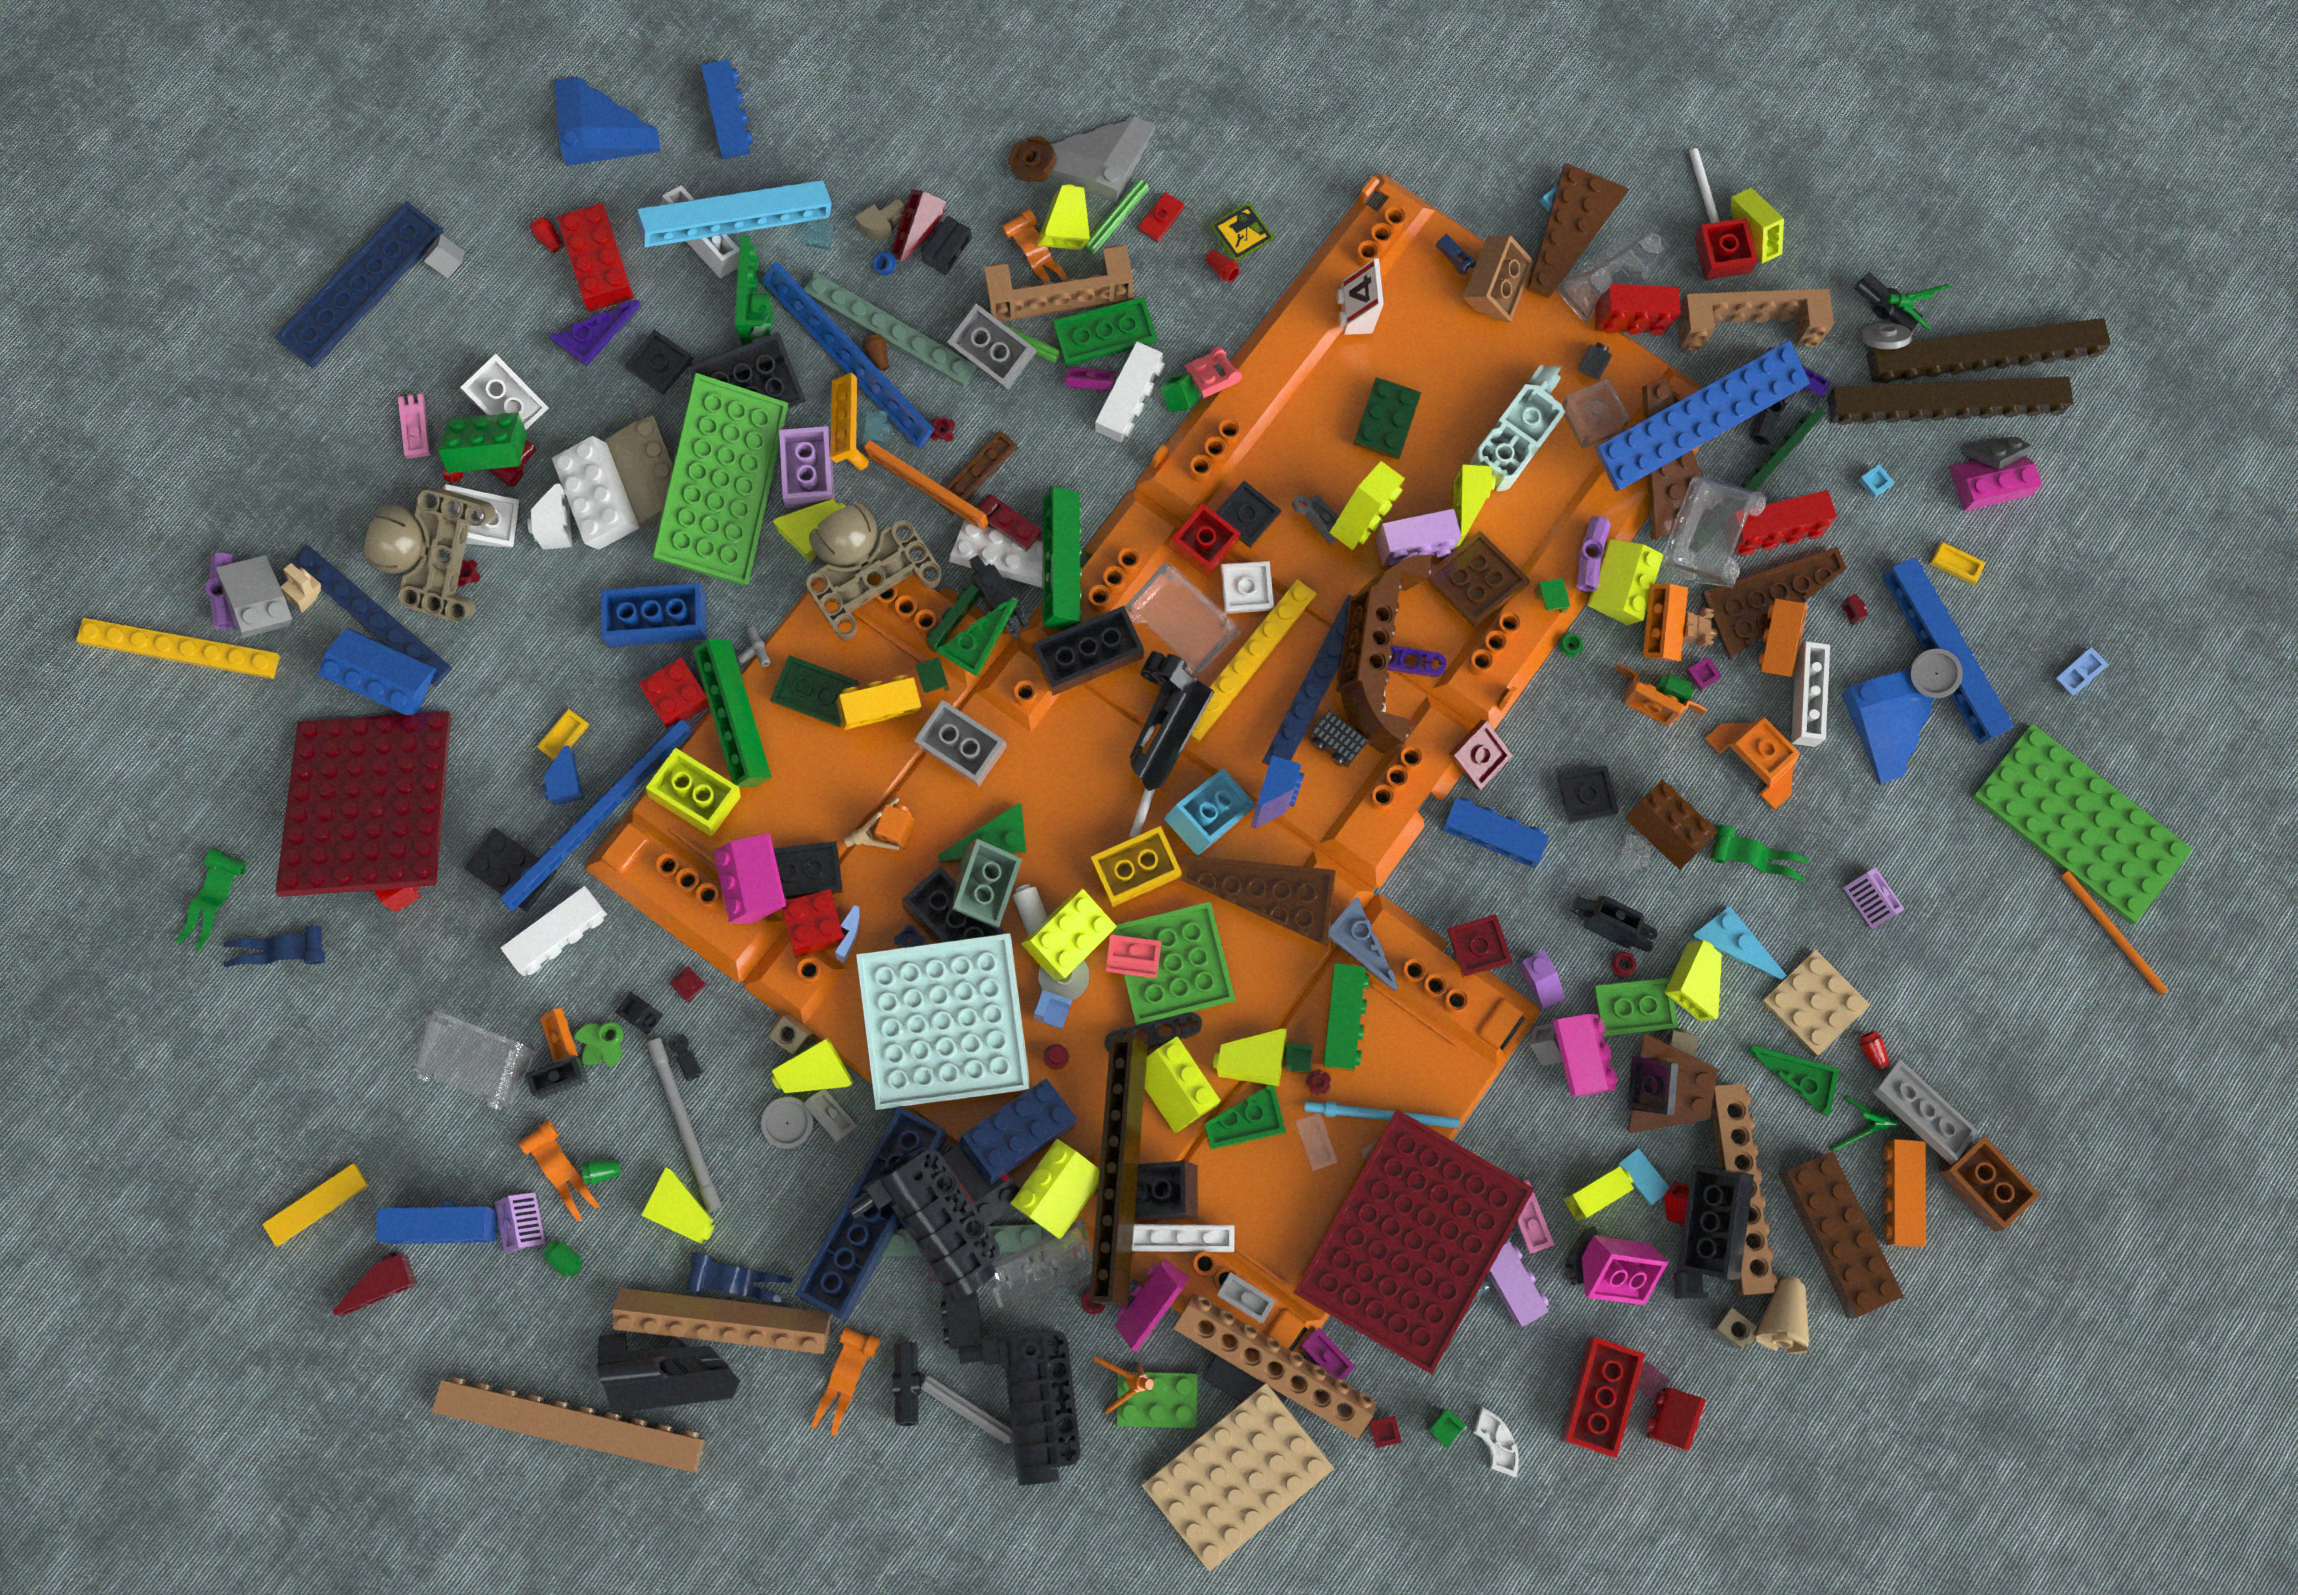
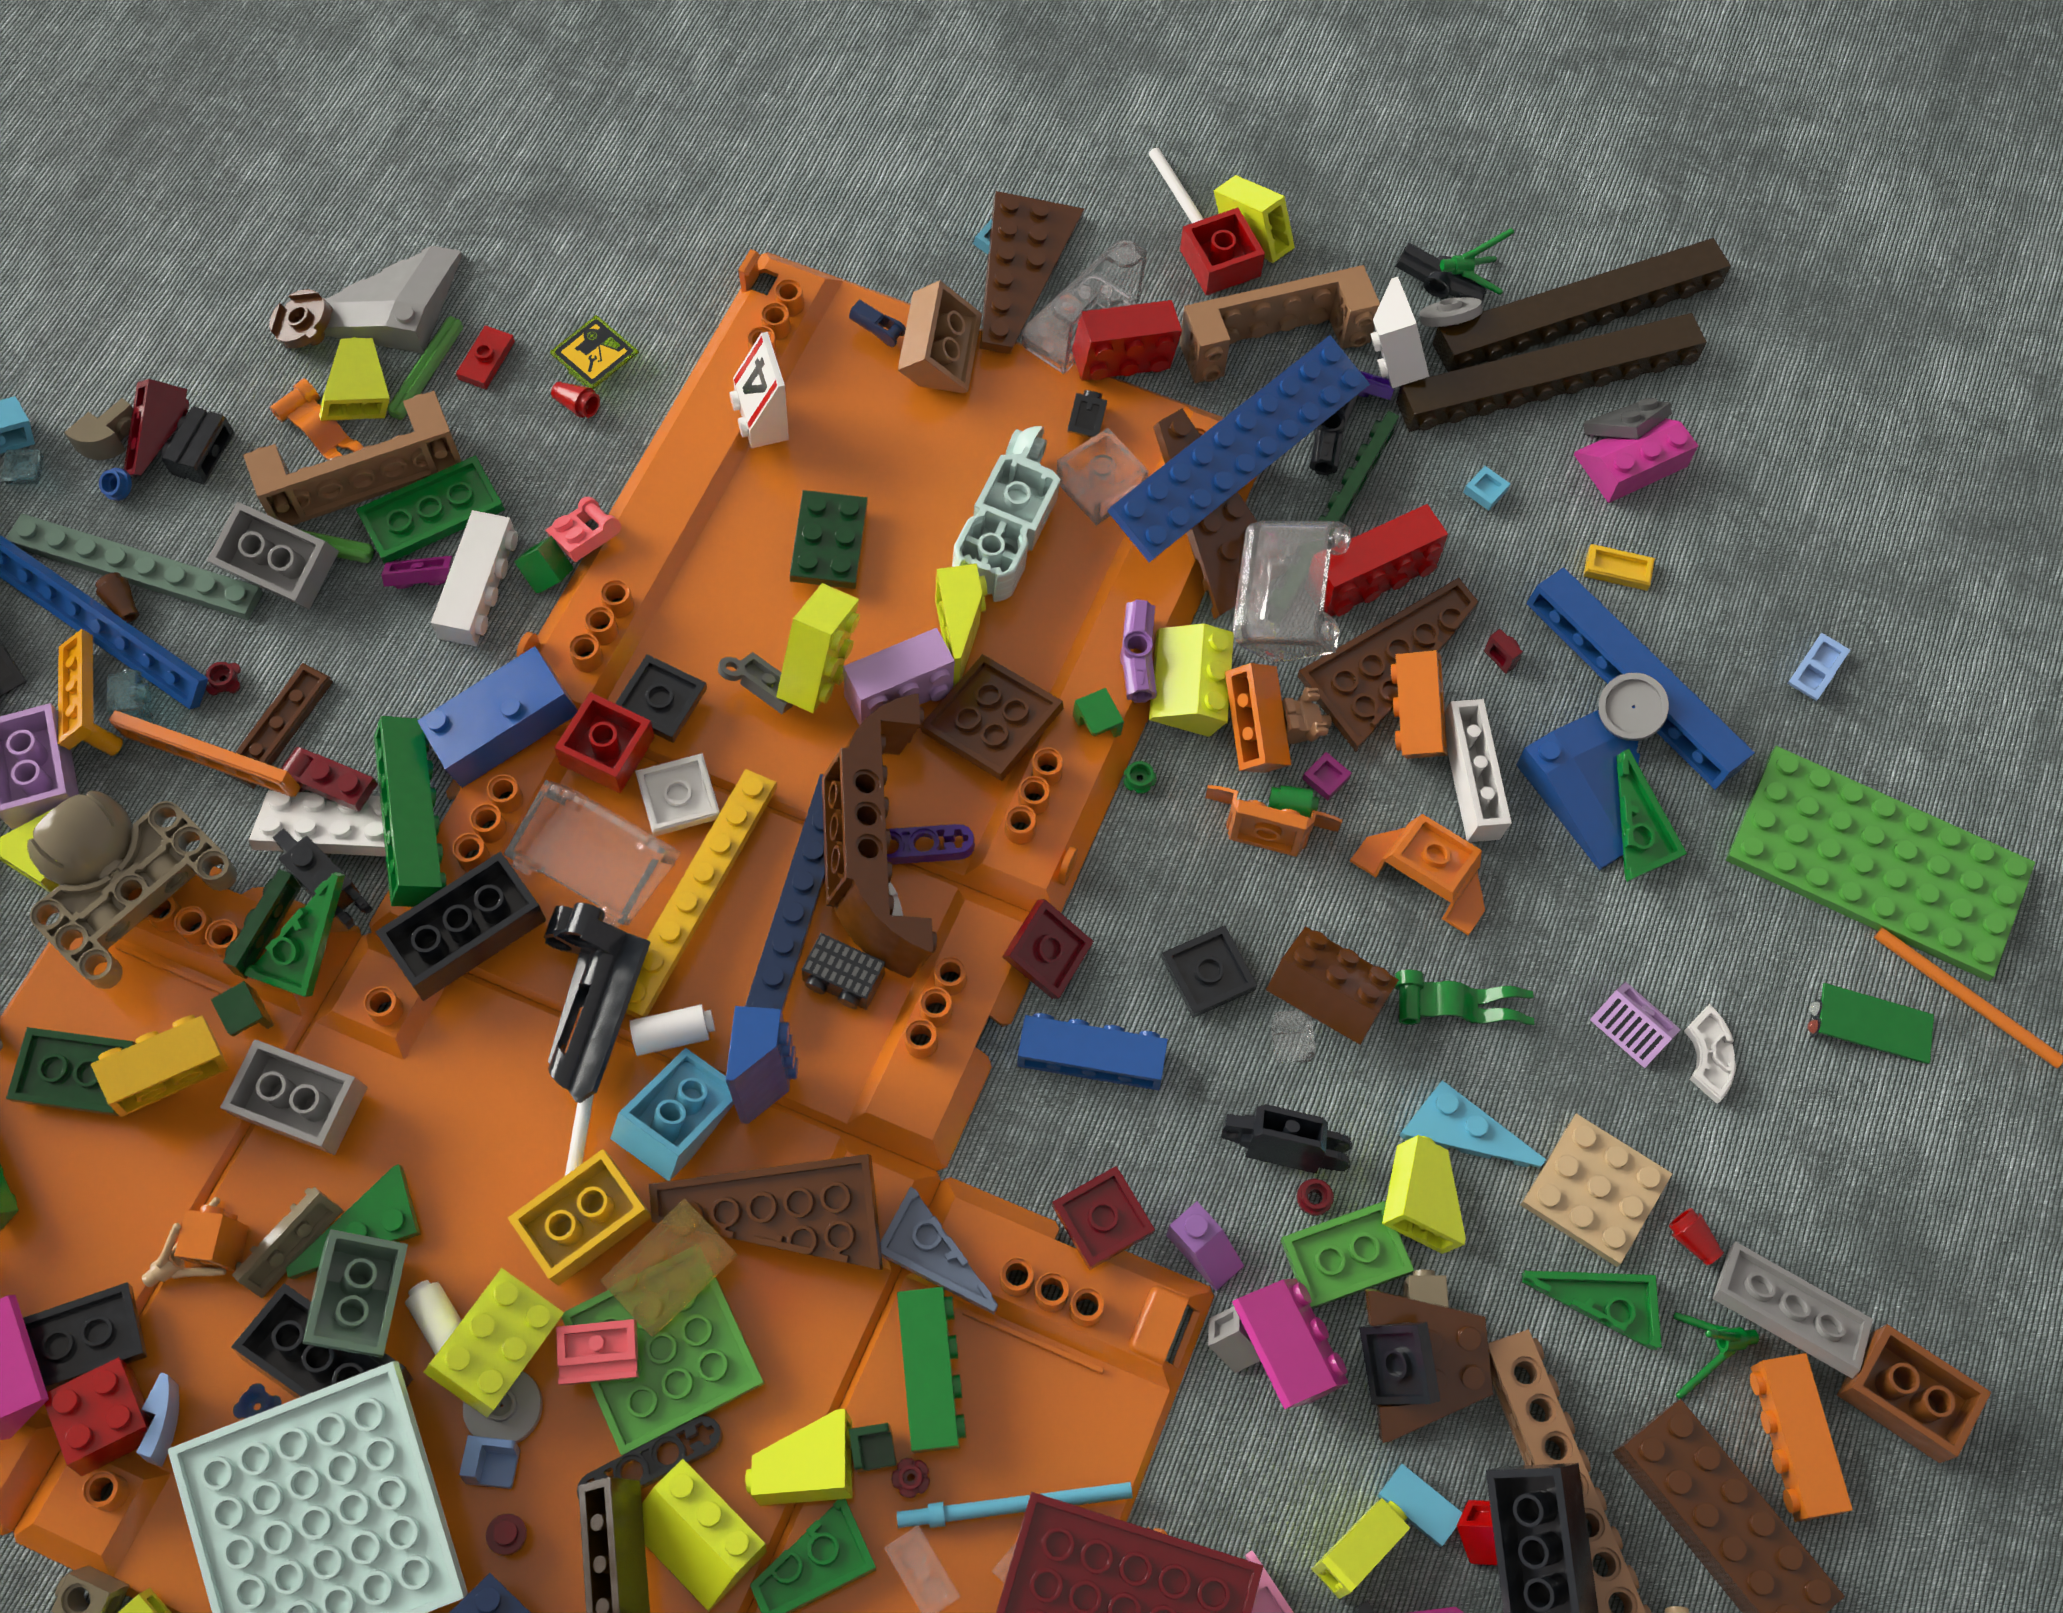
camera: 10 degrees left, 10 degrees down
(941, 837) = (287, 1242): none -> dark tan plate
(1133, 504) = (497, 717): none -> brick
(1188, 912) = (668, 1267): none -> clear yellow plate
(1216, 754) = (671, 1029): none -> white brick
(1840, 352) = (1398, 338): none -> white slope
(1920, 764) = (1646, 831): none -> green wing
(1923, 930) = (1714, 1053): none -> white tile
(2040, 935) = (1872, 1023): none -> green piece

